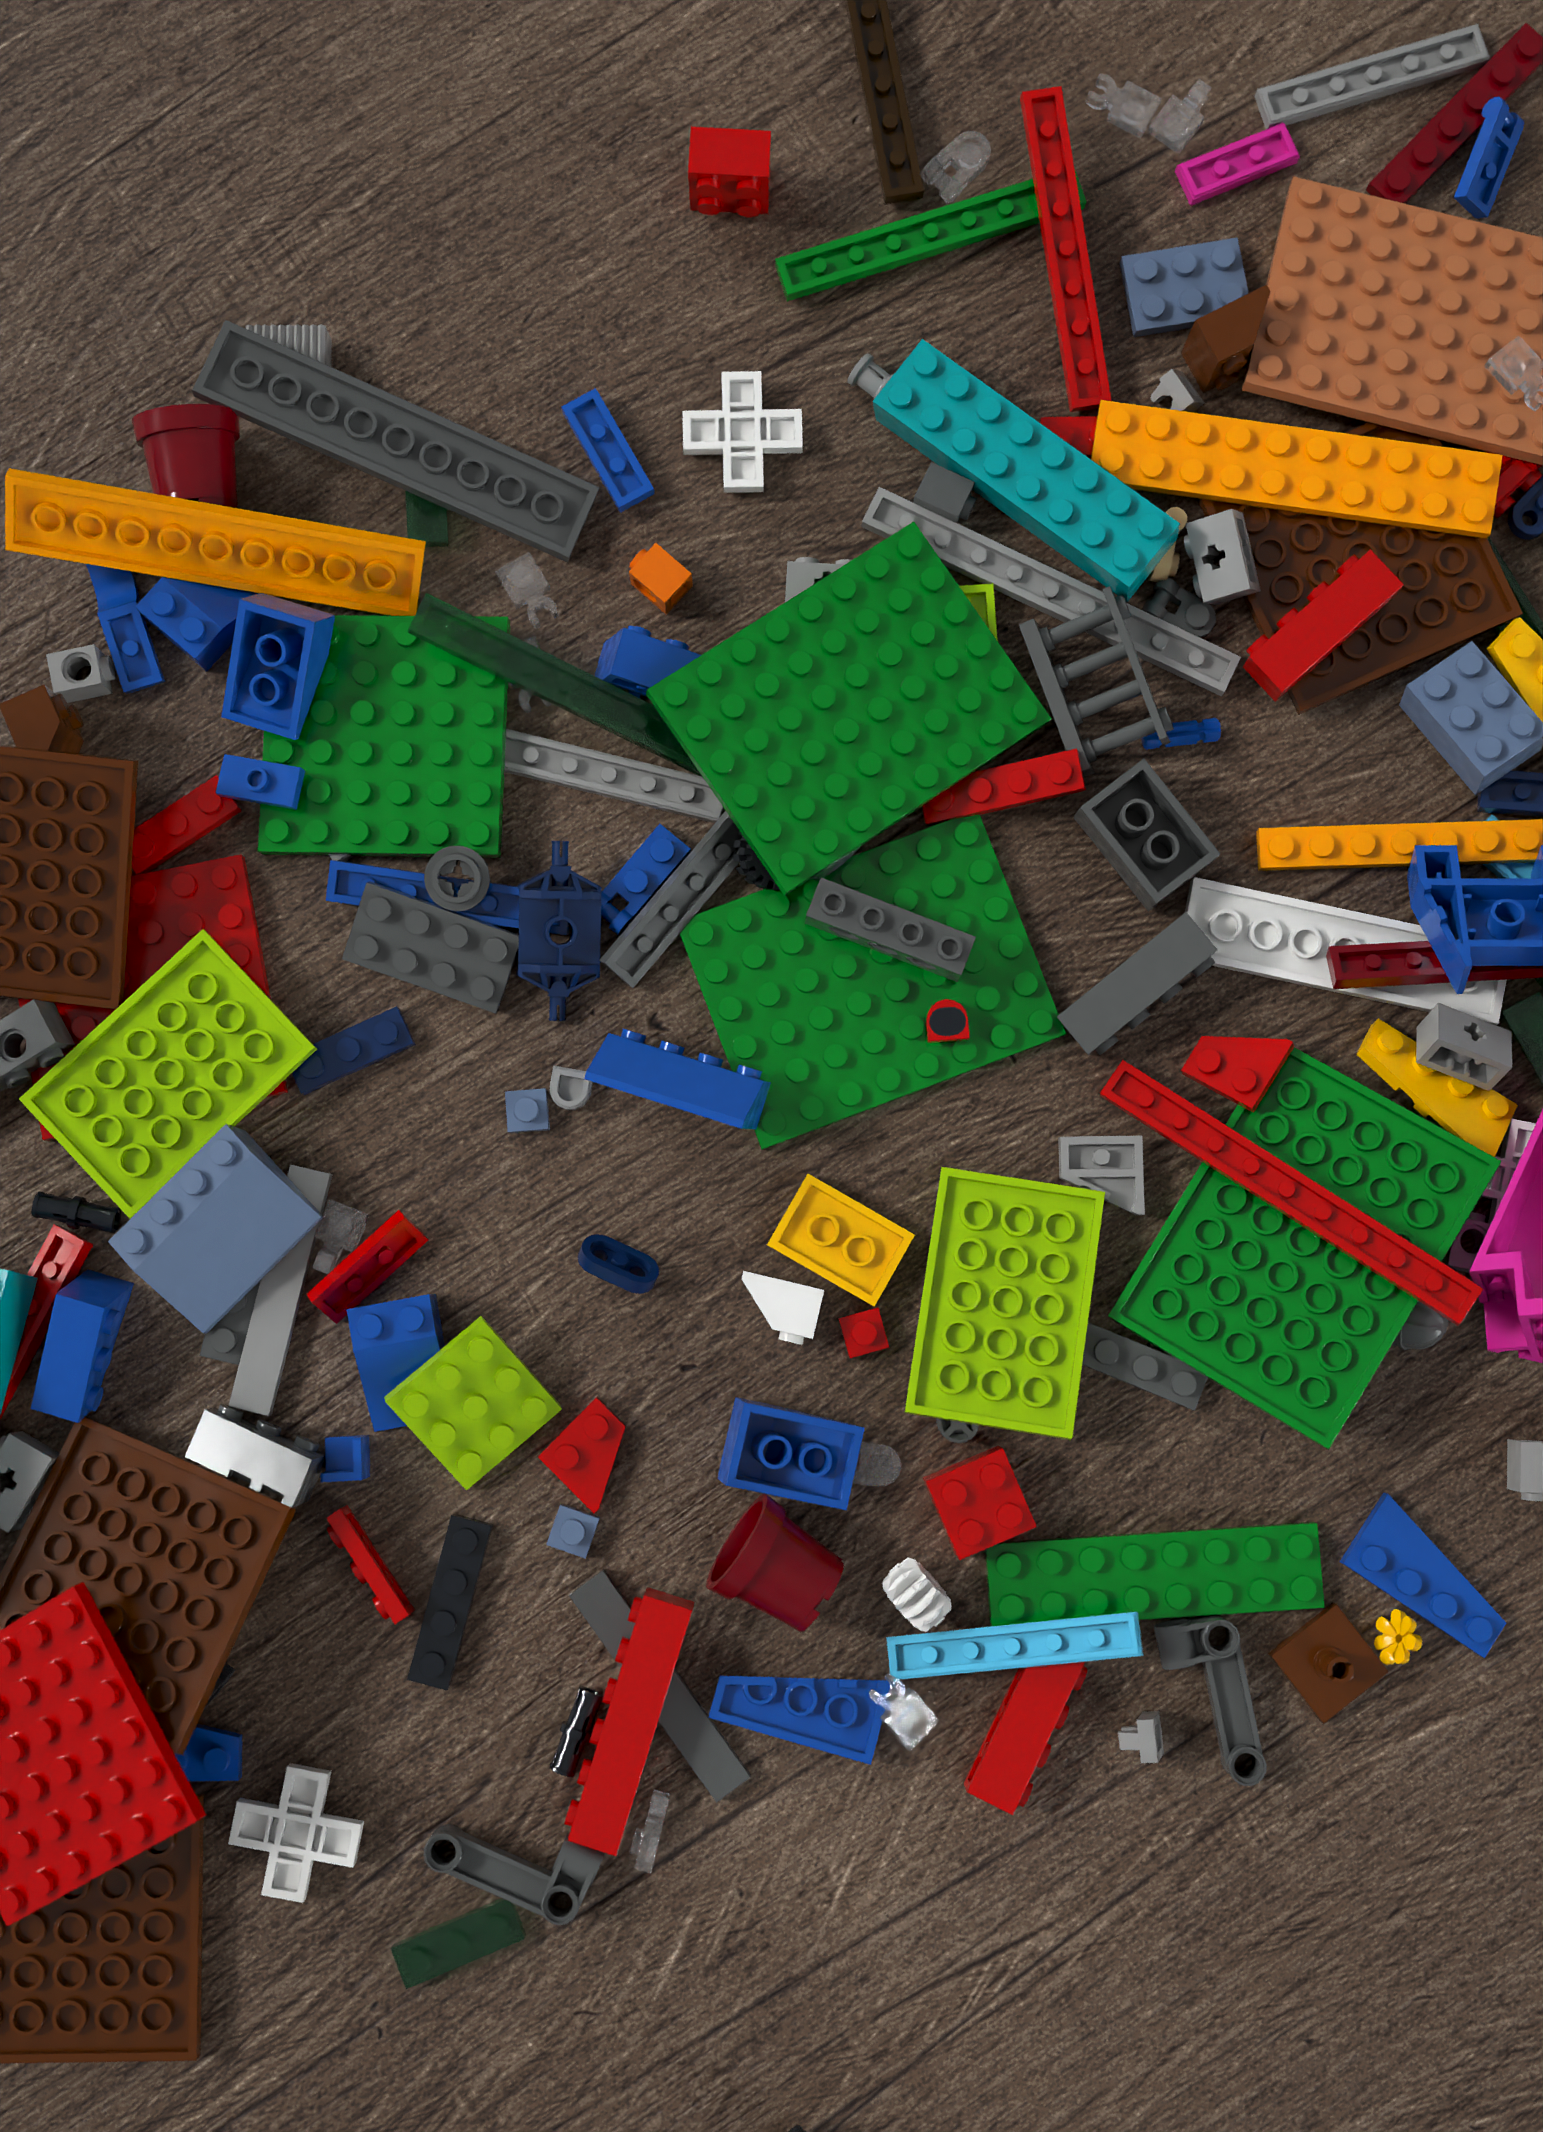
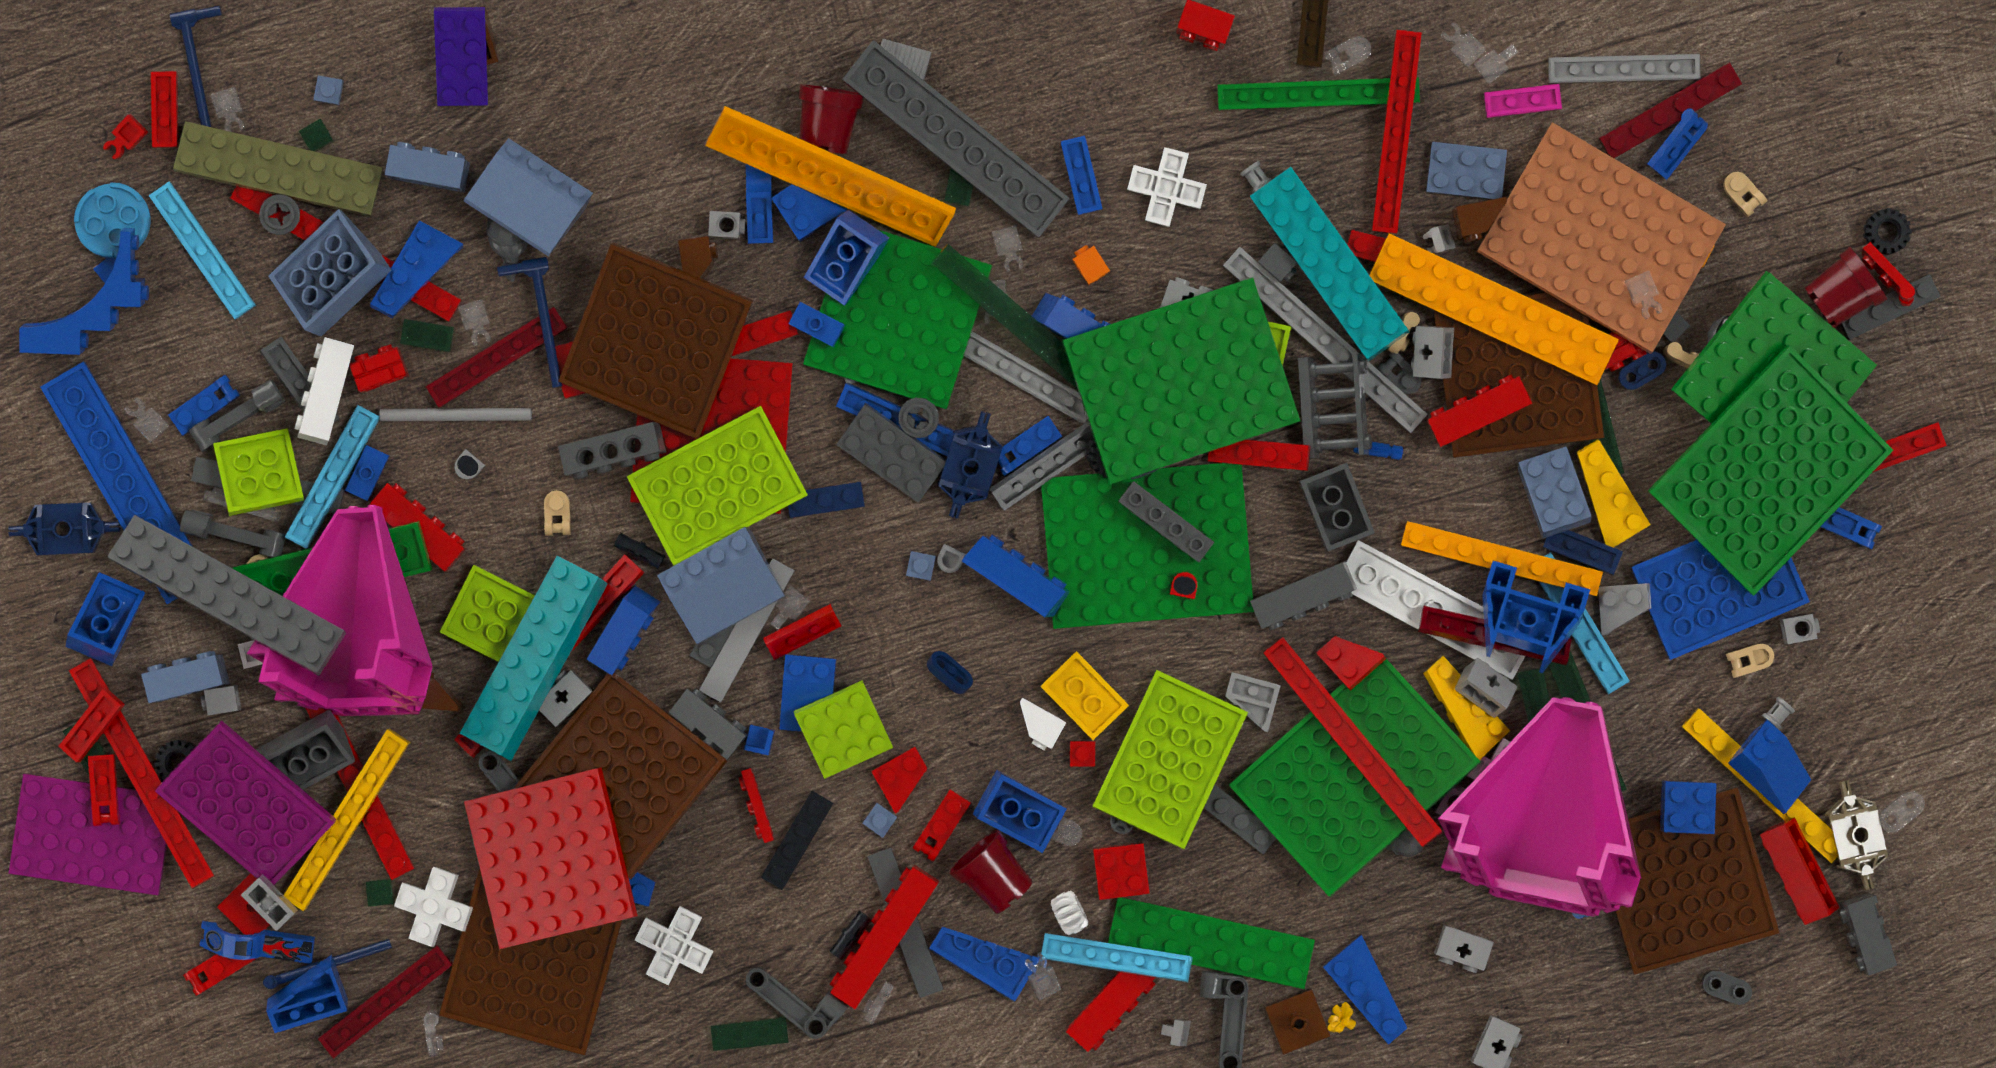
camera: 20 degrees right, 5 degrees up
(674, 1509) = (942, 824): none -> red plate

